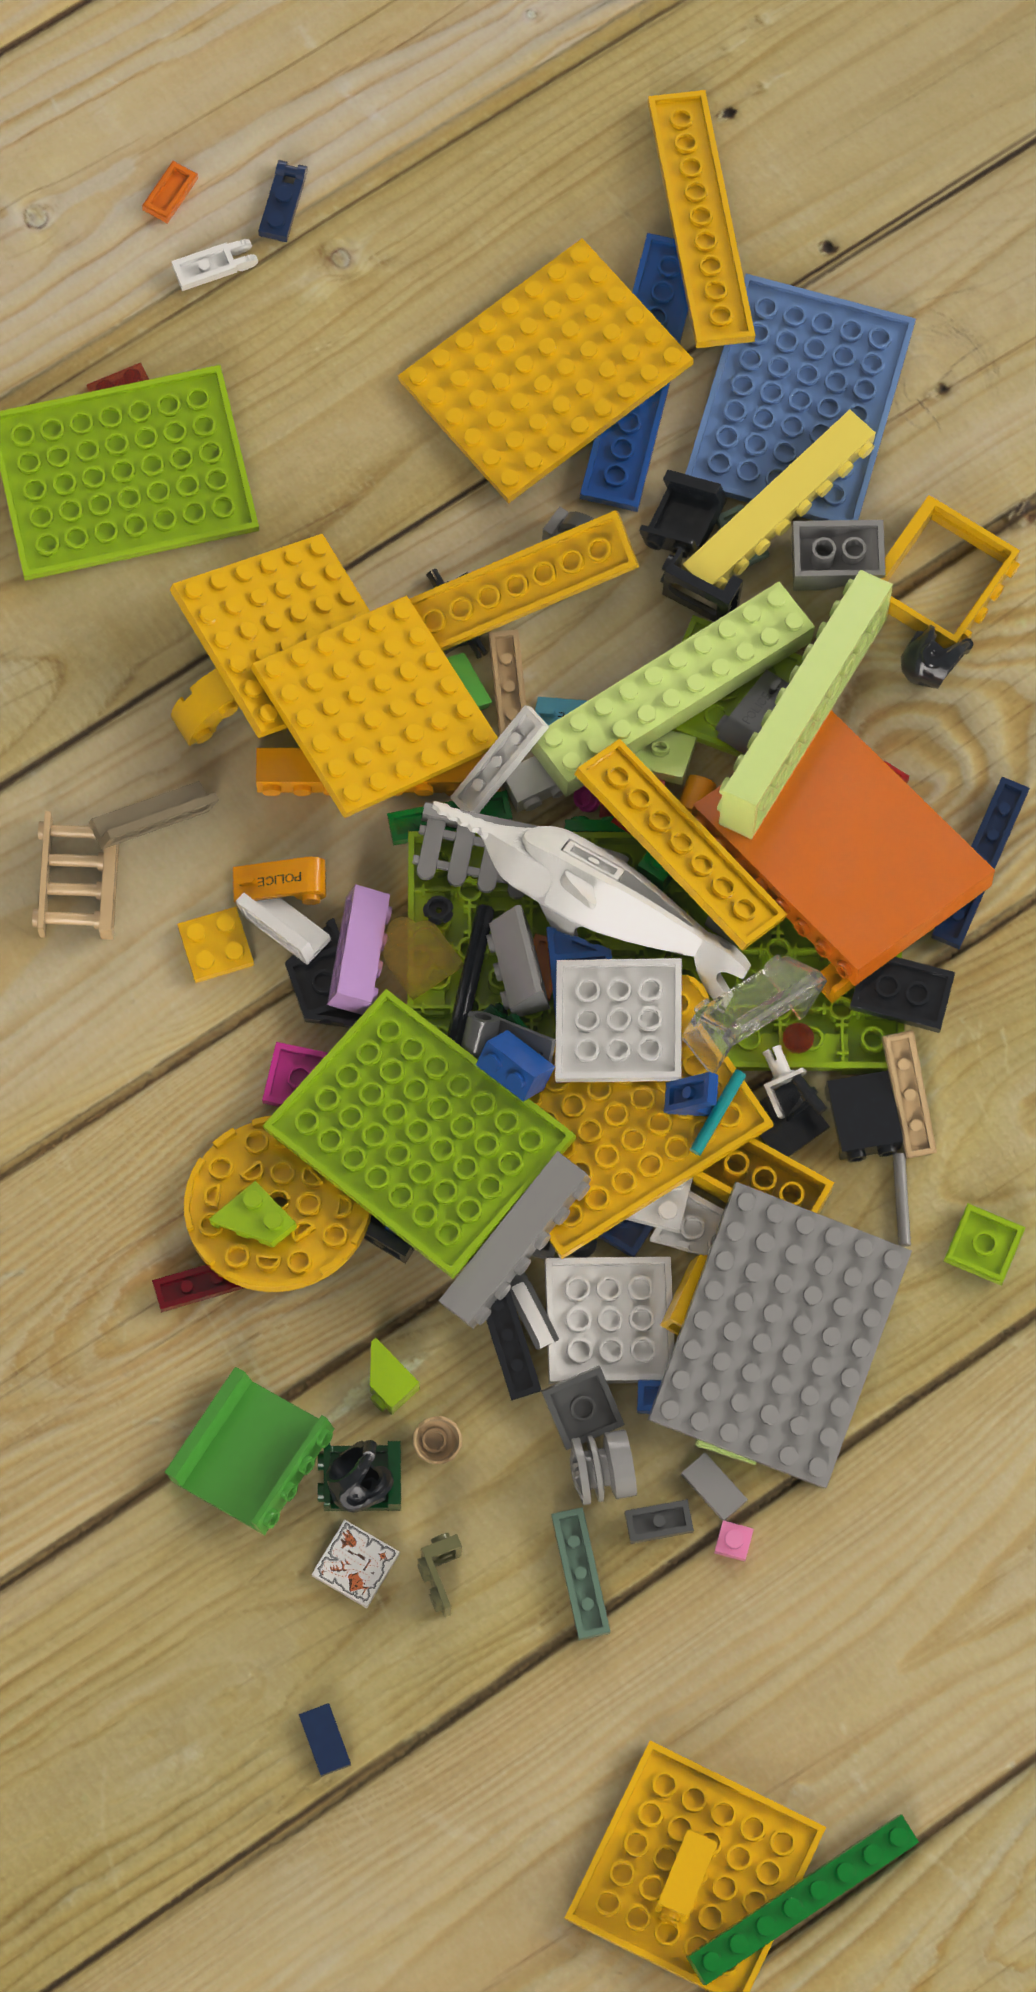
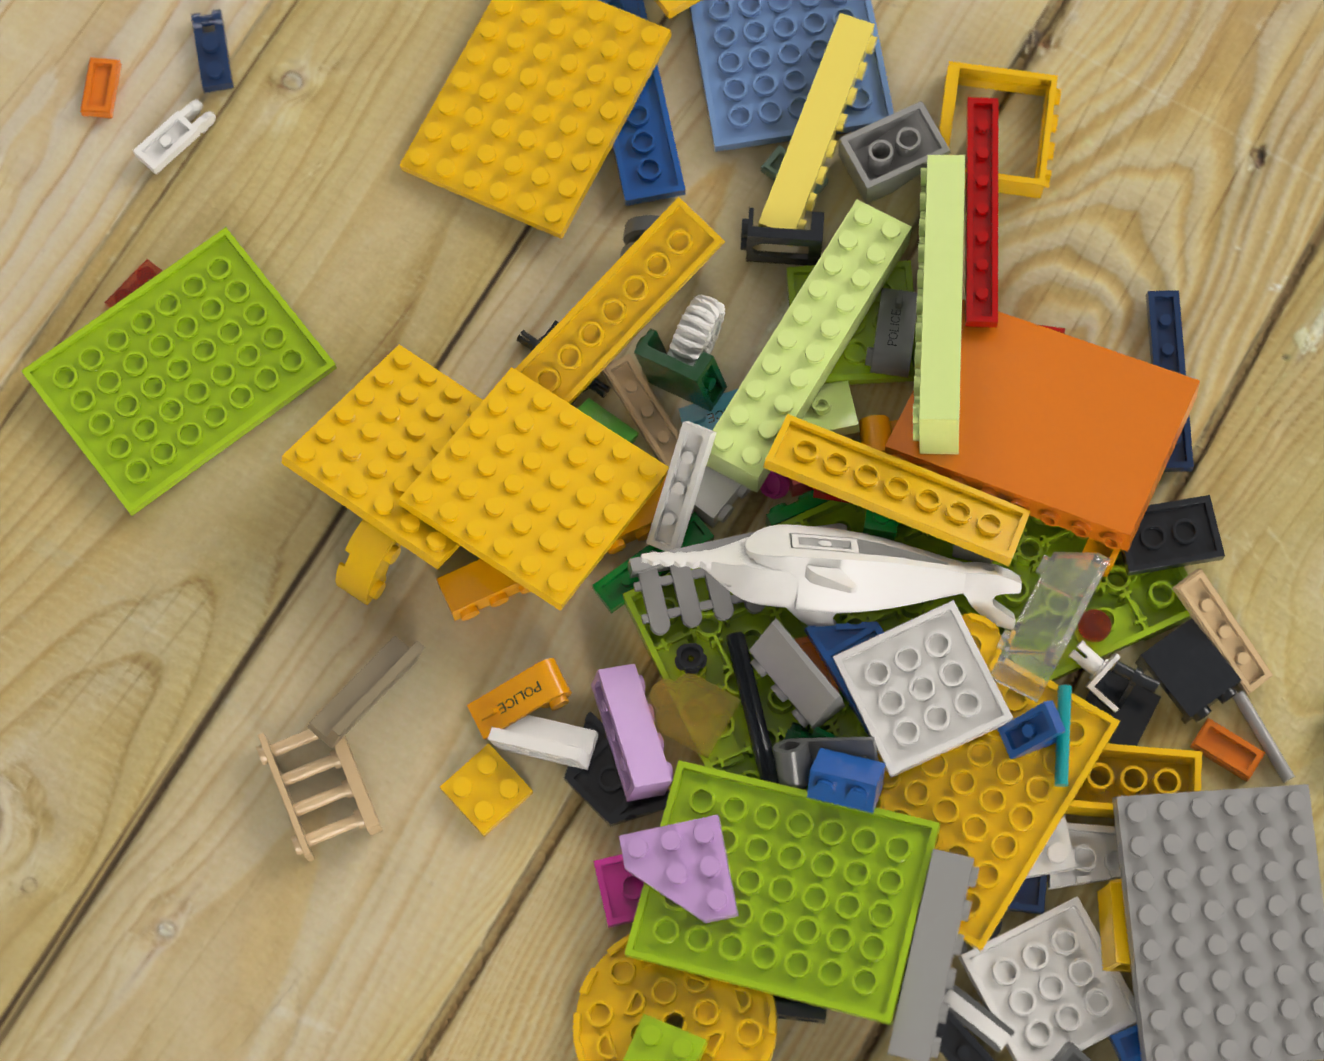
camera: 20 degrees left, 0 degrees up
(347, 1075) = (685, 865): none -> lavender plate
(553, 524) = (616, 240): light grey tile -> none
(560, 679) = (698, 383): none -> dark green panel
(580, 639) = (697, 329): none -> white gear
(684, 514) = (732, 177): black panel -> none
(864, 1196) = (1227, 749): none -> orange tile
(885, 641) = (981, 212): none -> red plate
(927, 662) = (1029, 214): black helmet -> none

